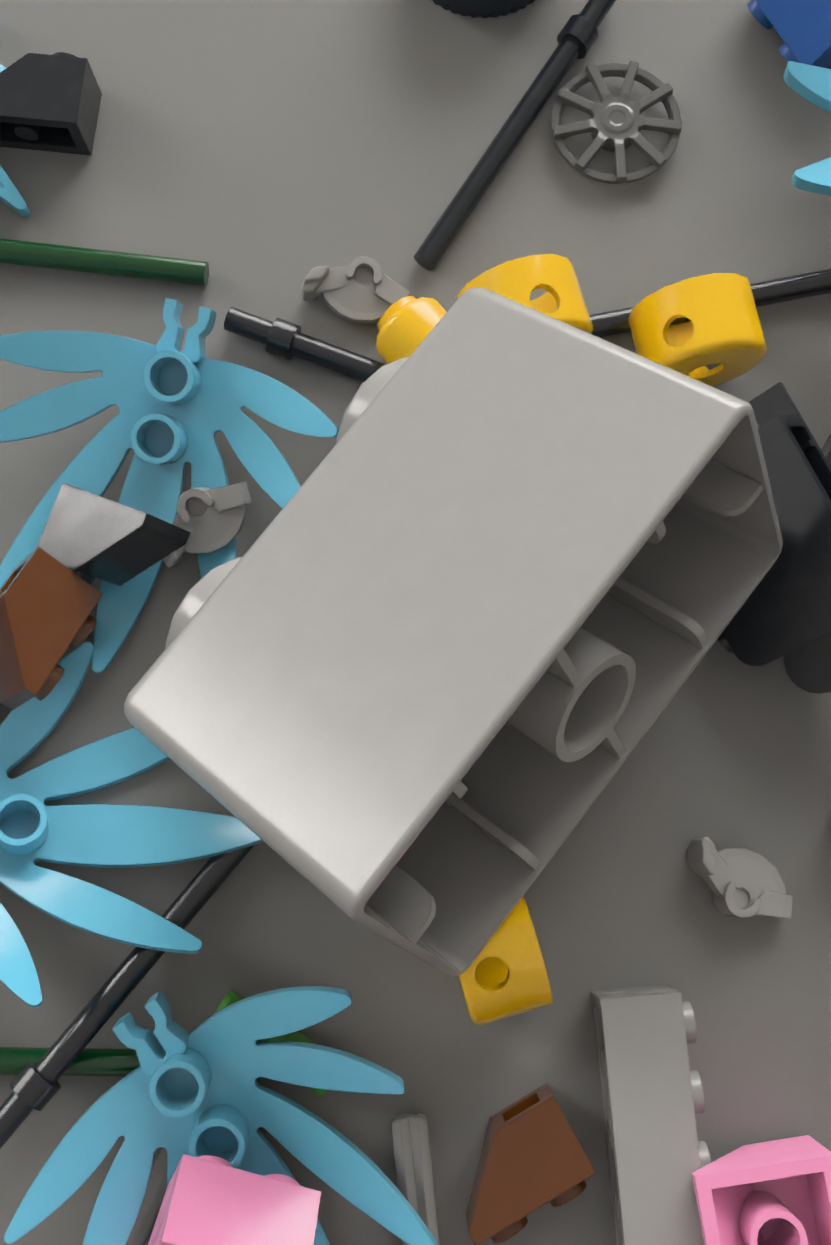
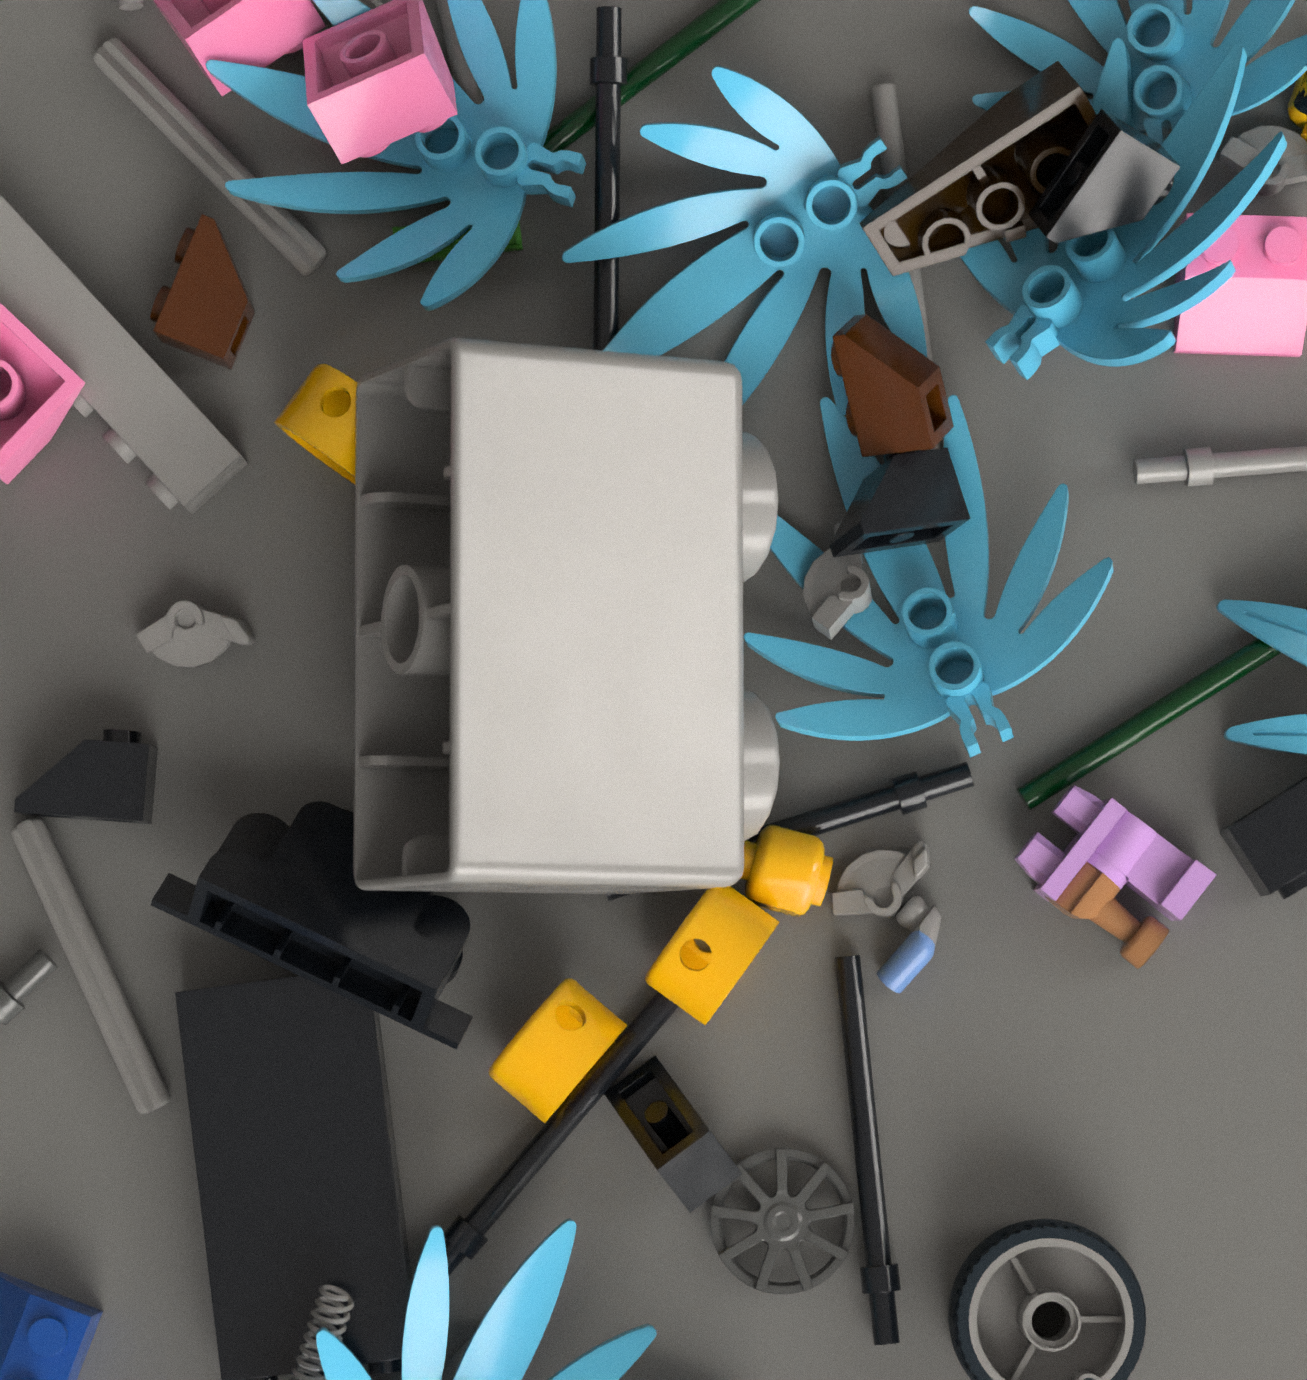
camera: 145 degrees right, 5 degrees up
(186, 187) = (1104, 856): none -> lavender hips
(366, 226) = (917, 948): none -> medium blue arm
(652, 226) = (672, 1134): none -> black slope

